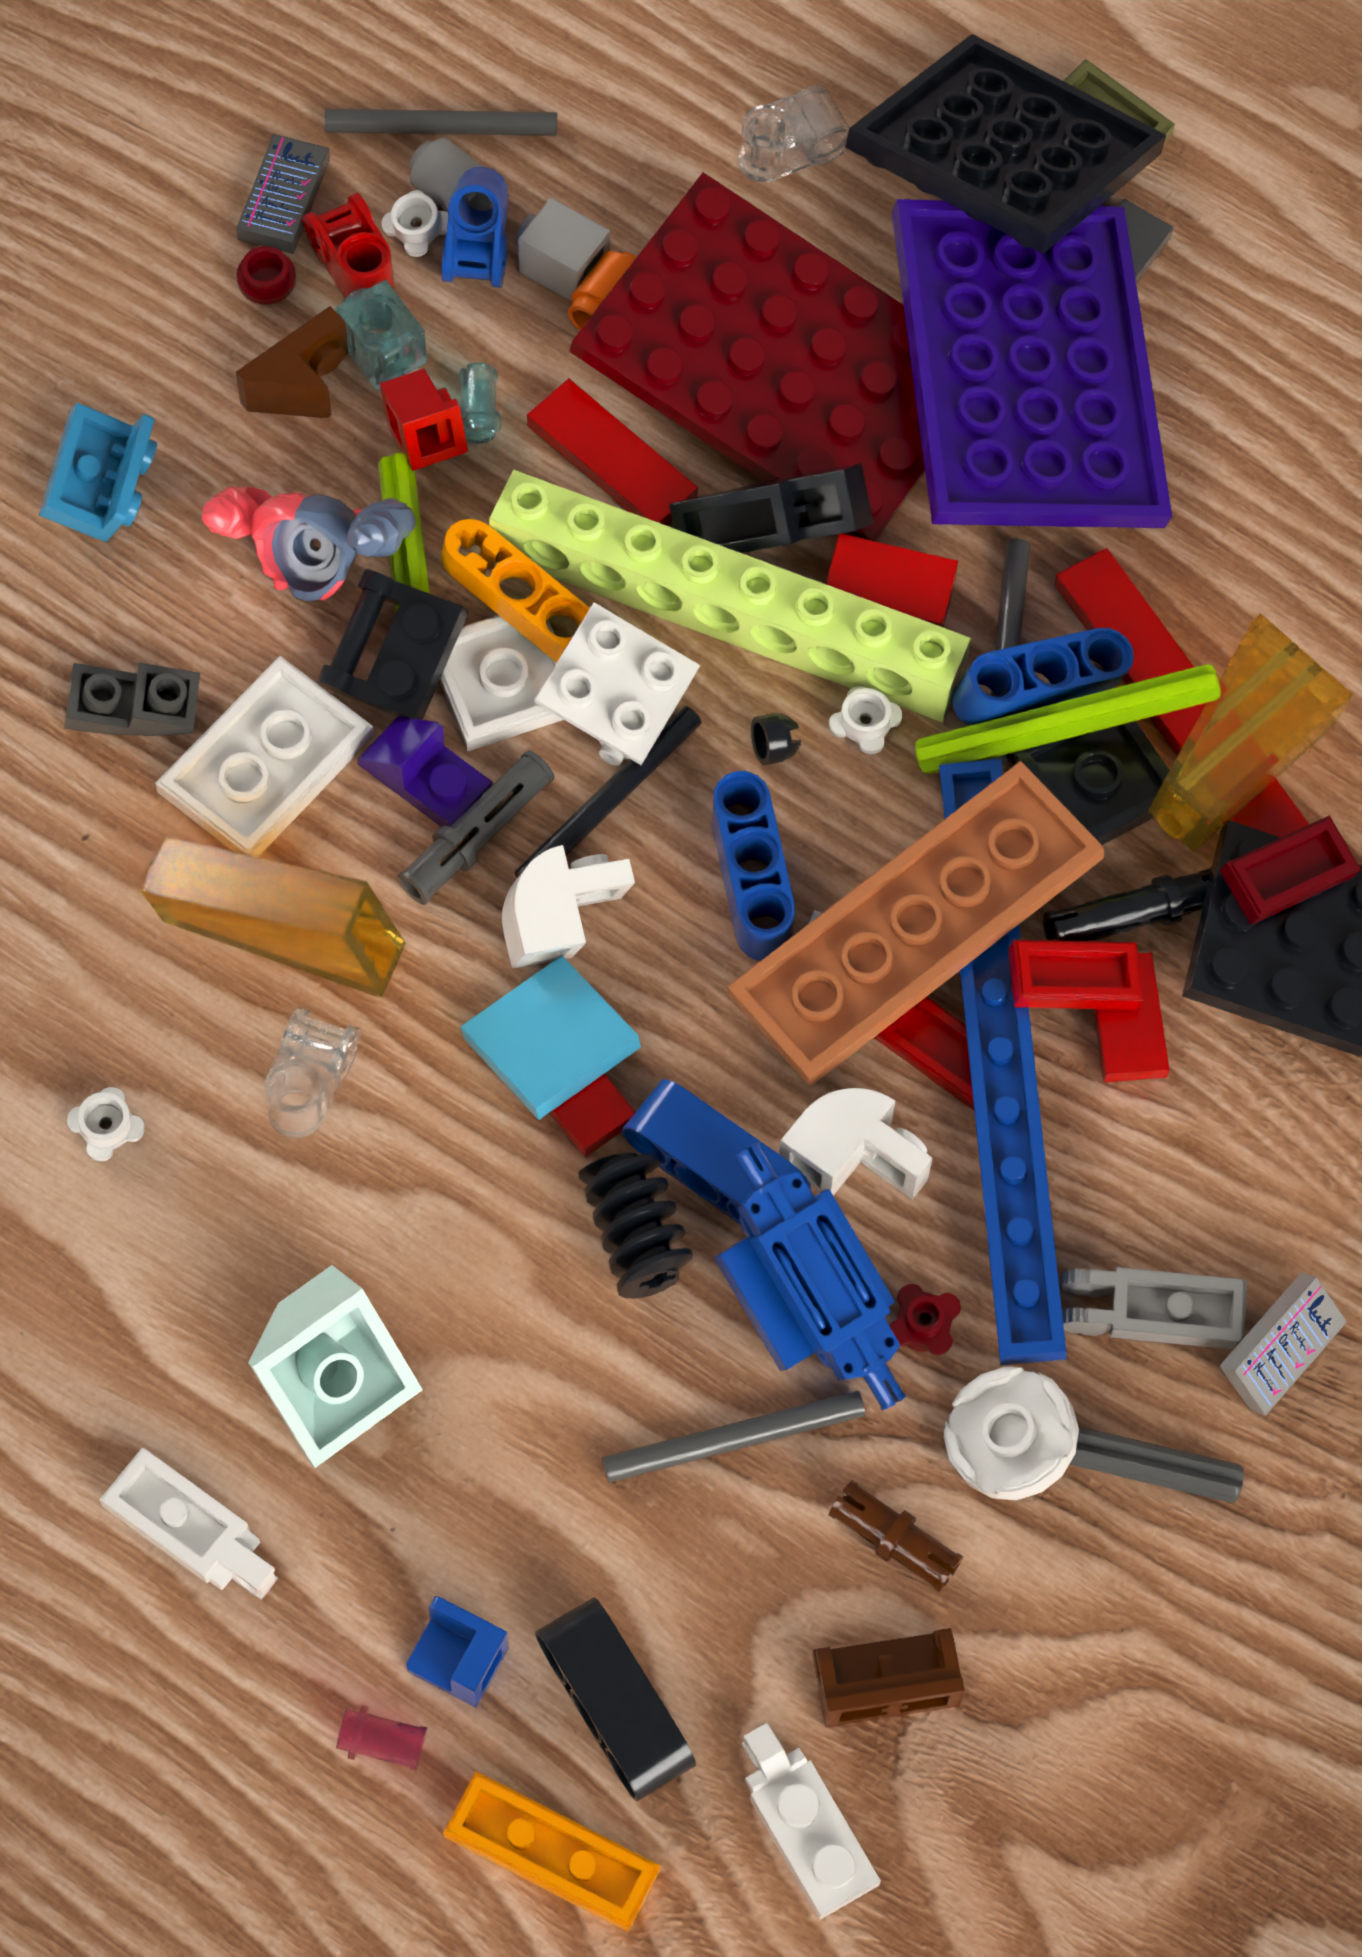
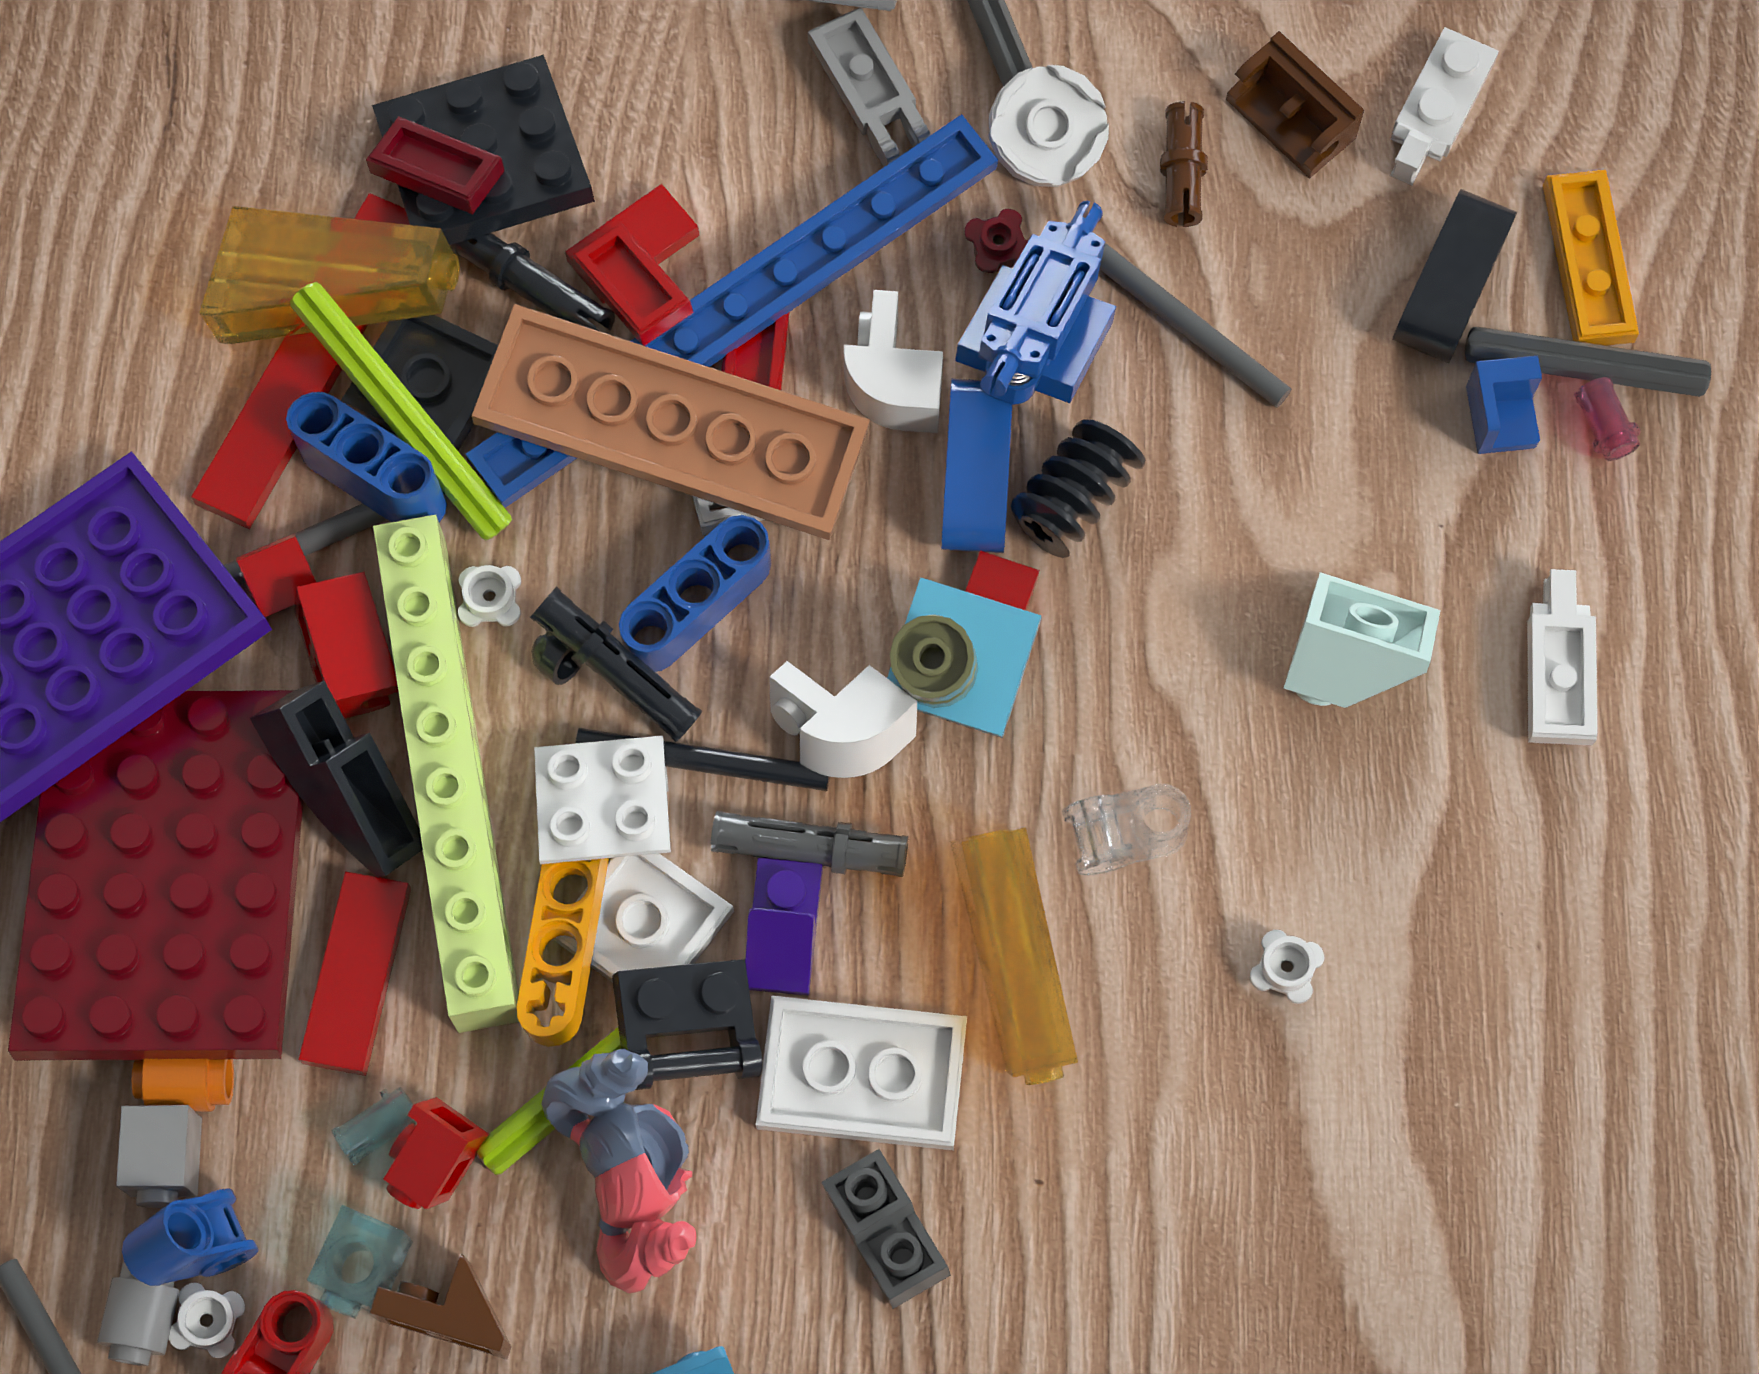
camera: 120 degrees left, 5 degrees up
(449, 1767) = (1593, 361): none -> dark grey axle
(547, 983) = (934, 660): none -> olive wheel
(796, 730) = (615, 663): none -> black pin
(989, 572) = (275, 573): none -> red tile

